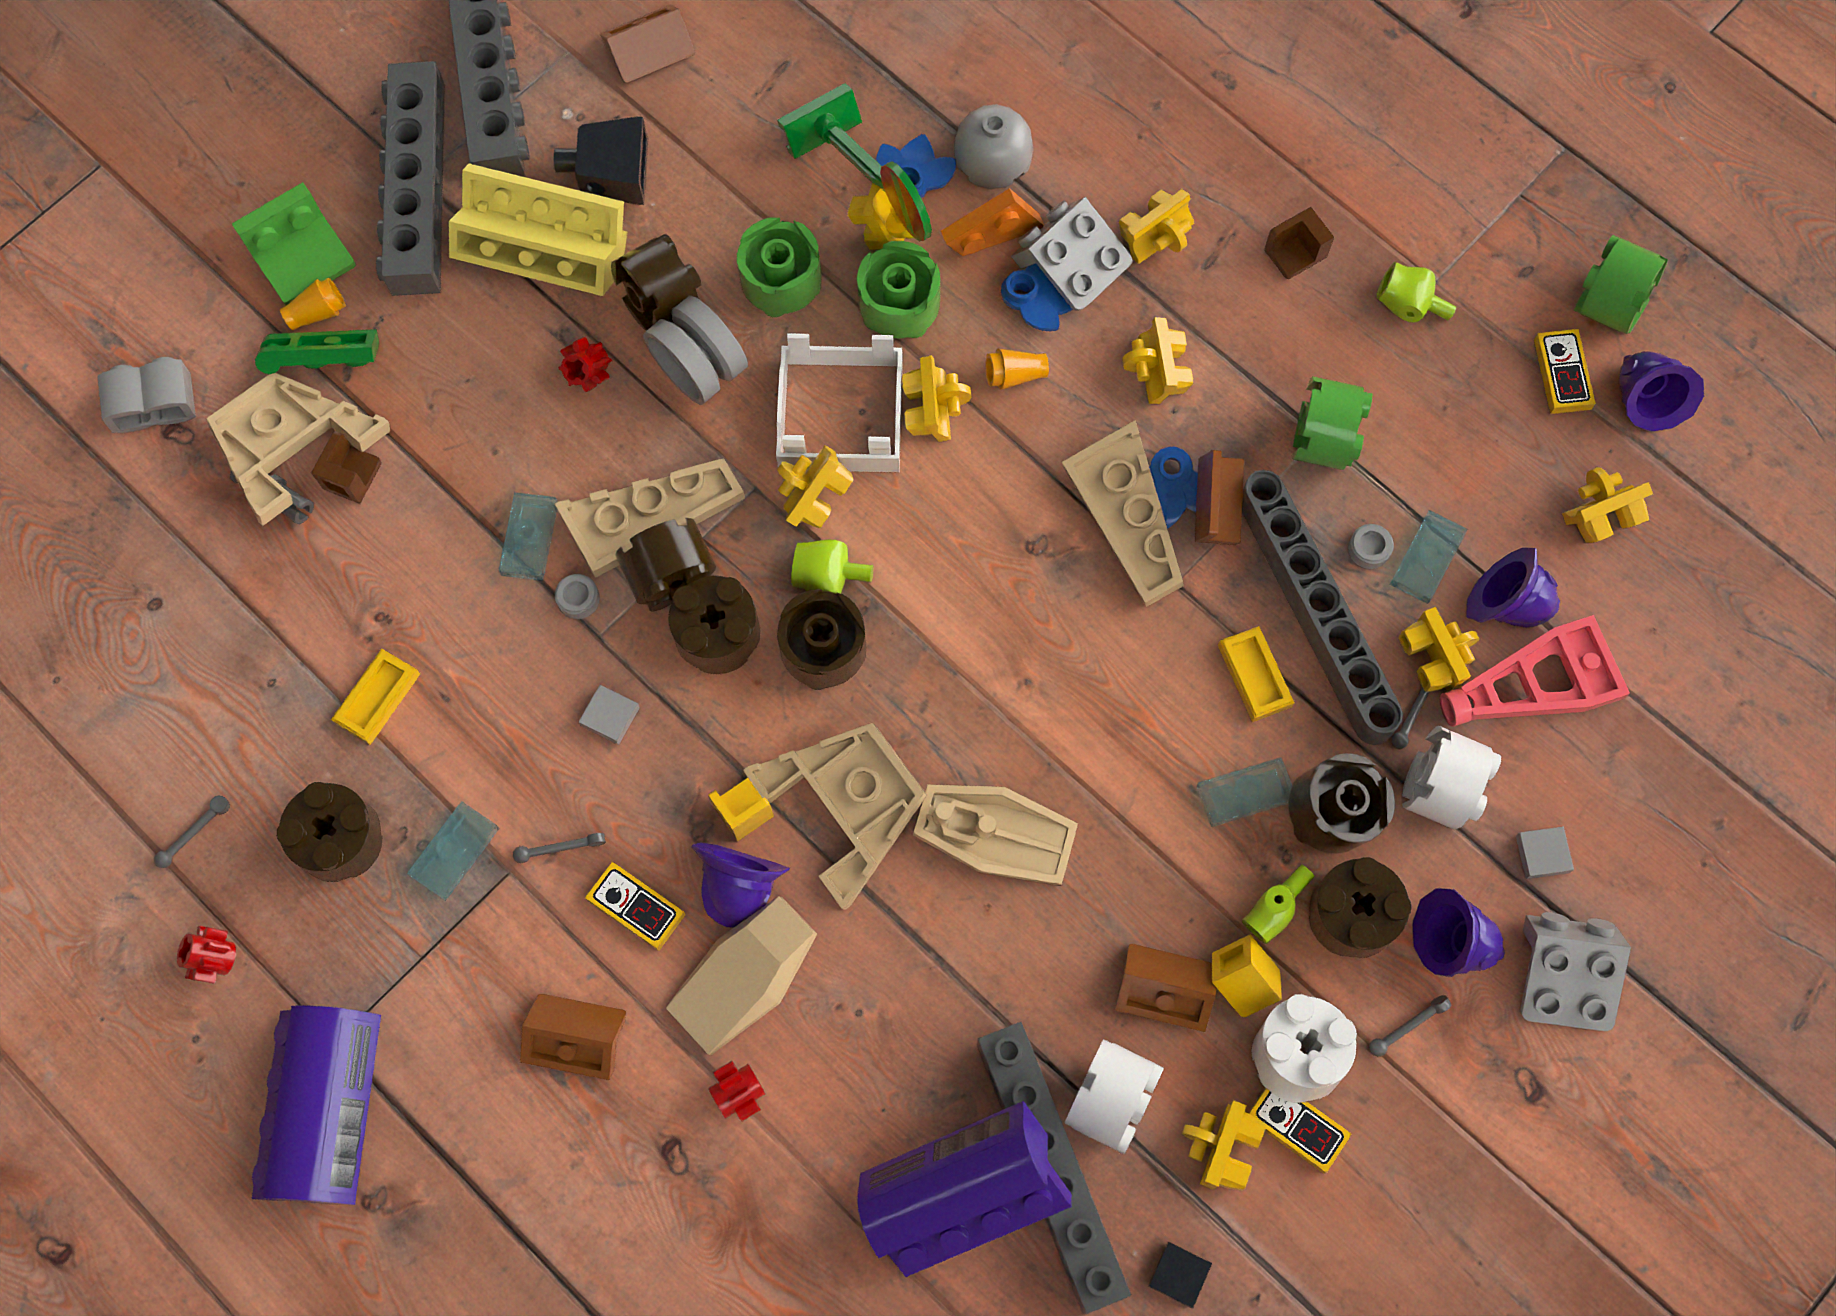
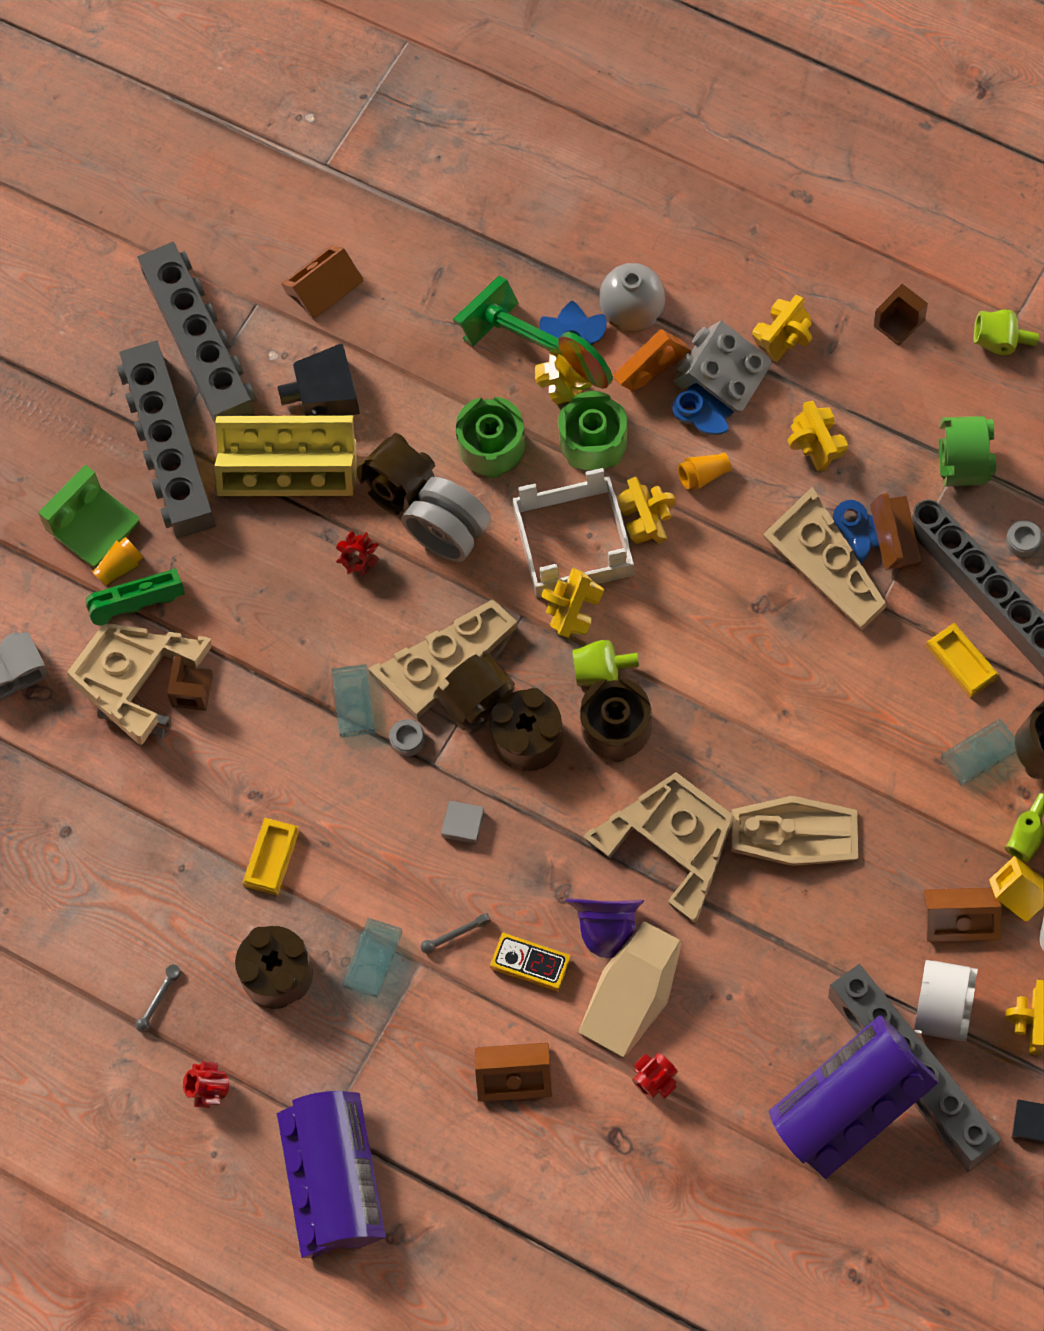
camera: 10 degrees left, 5 degrees down
(742, 808) = (591, 866): yellow panel -> none

